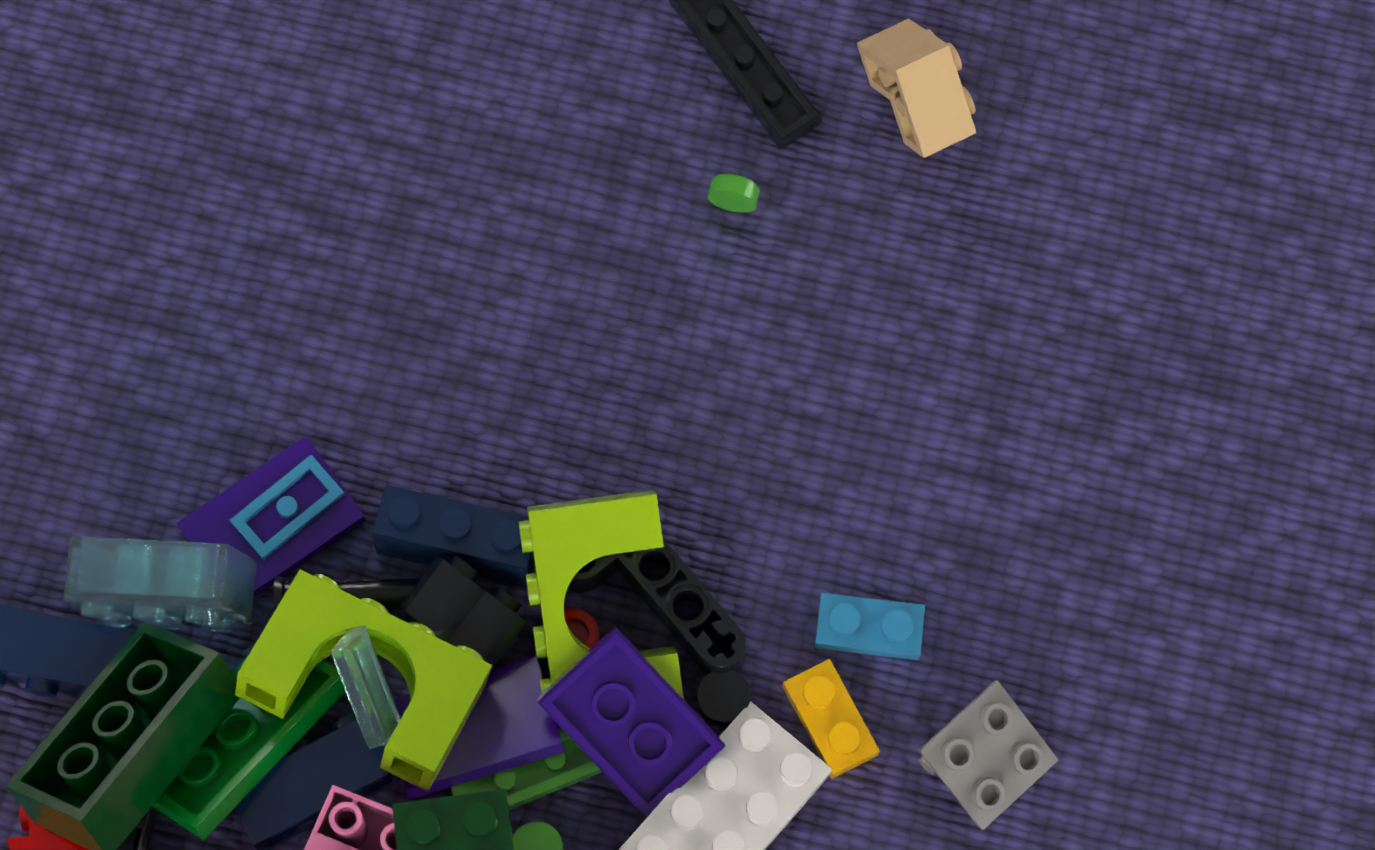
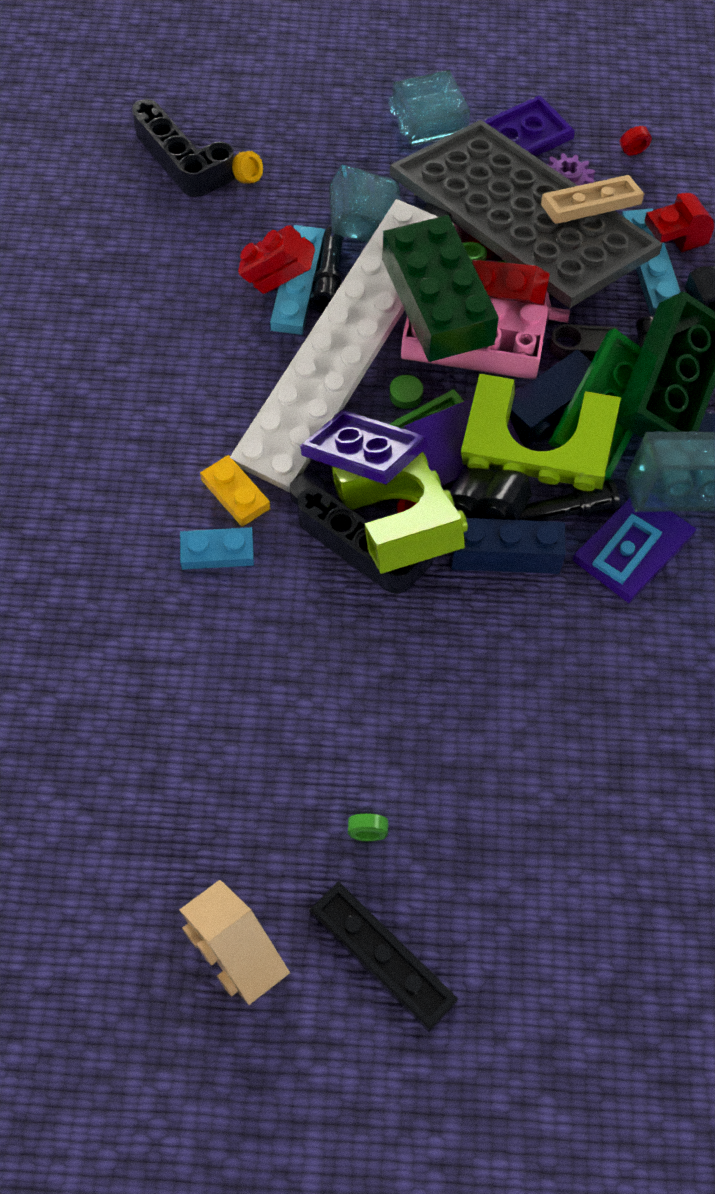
camera: 170 degrees right, 10 degrees down
(366, 686) = (537, 418): clear light blue tile -> none
(988, 755) = (131, 482): light grey hinge -> none

